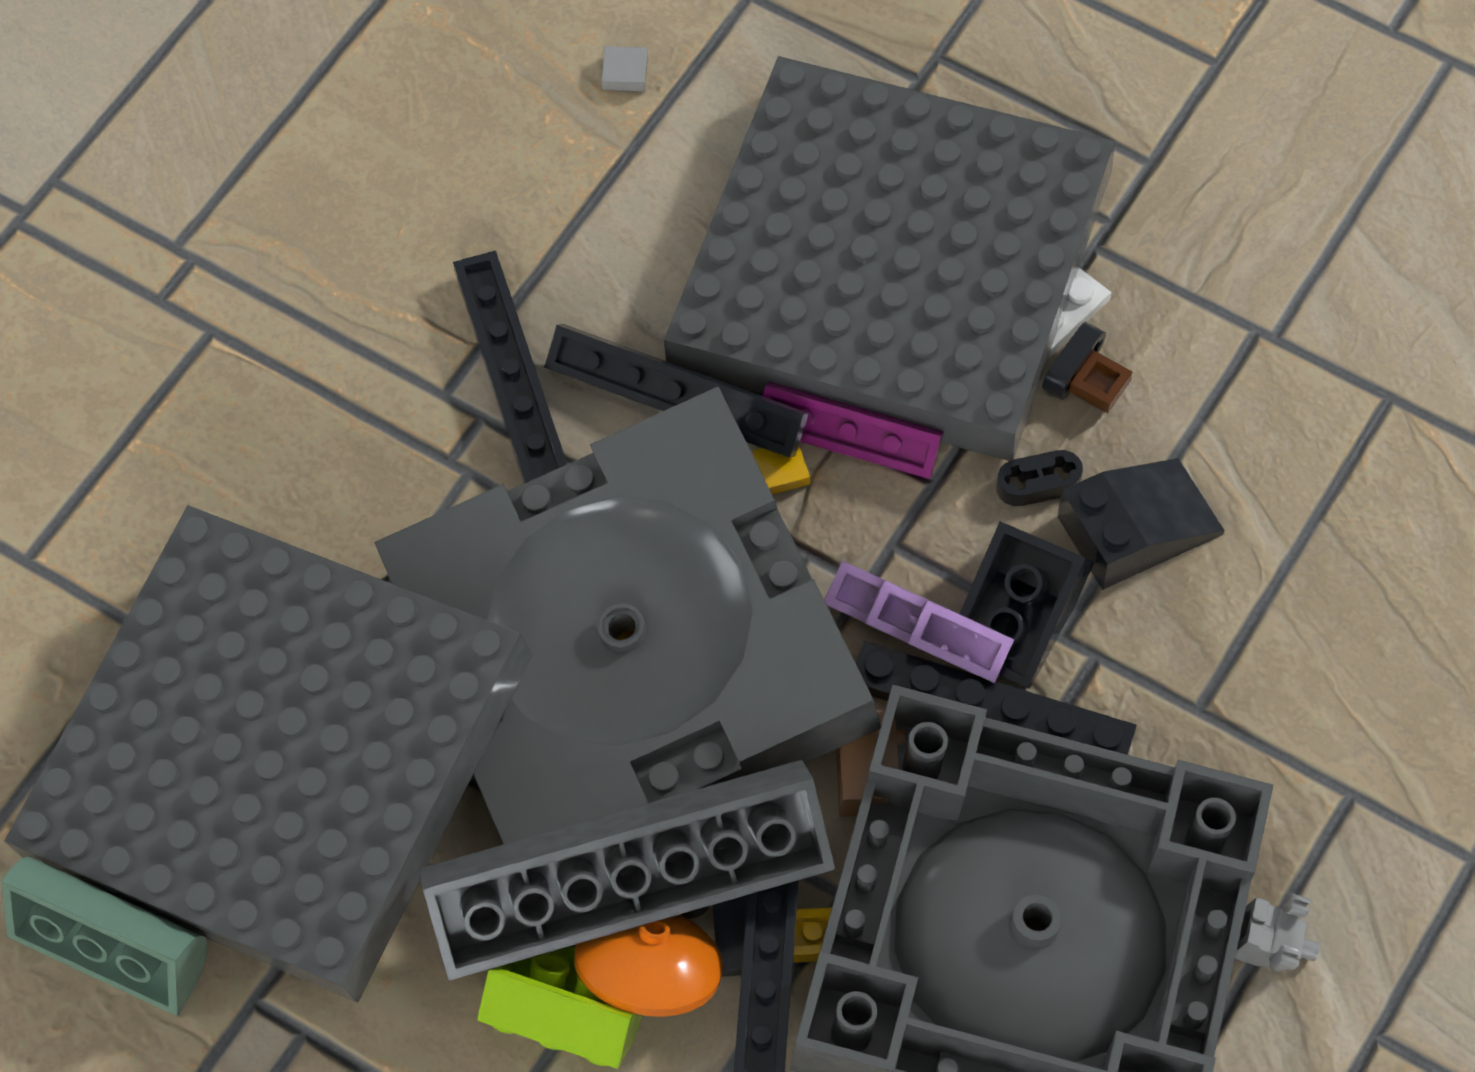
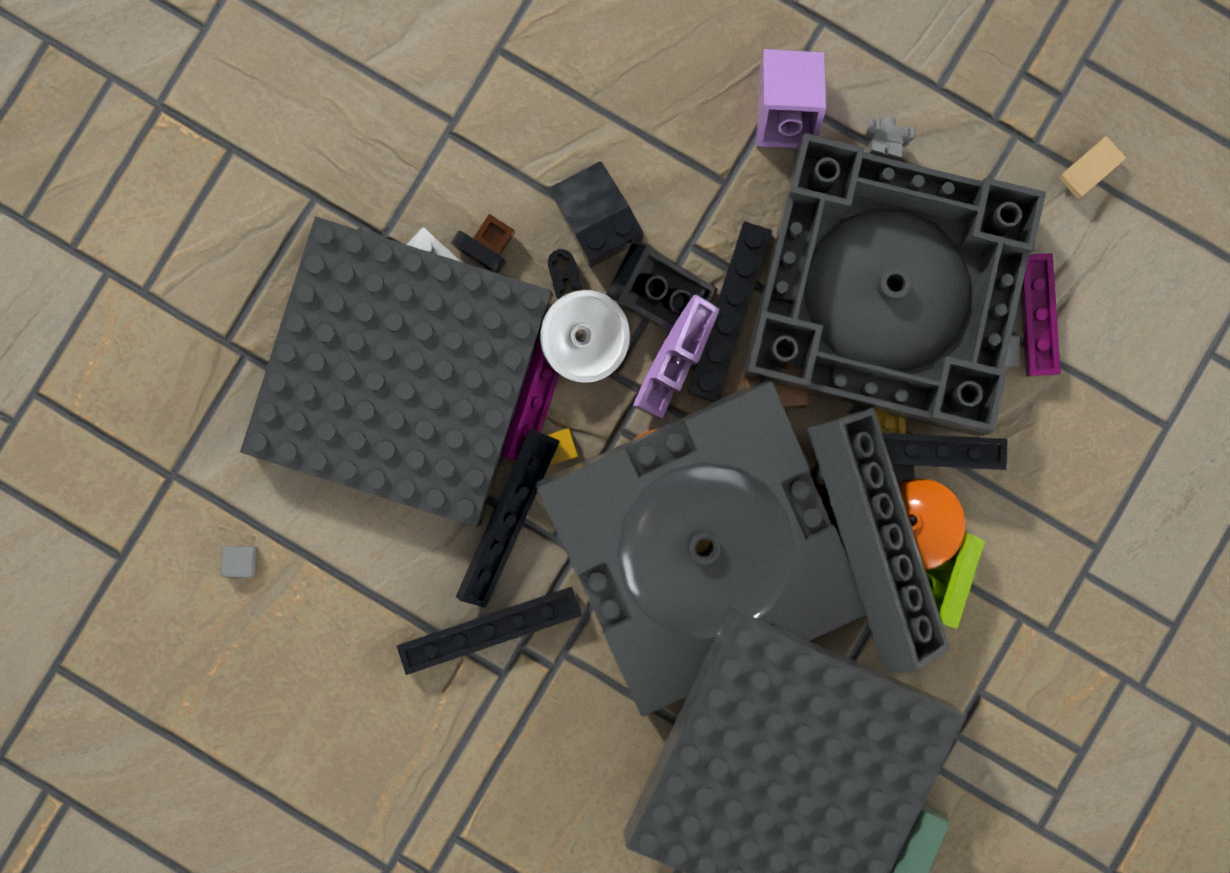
camera: 90 degrees left, 25 degrees up
(926, 465) = (603, 338): none -> white dish
(1338, 789) = (790, 97): none -> lavender slope

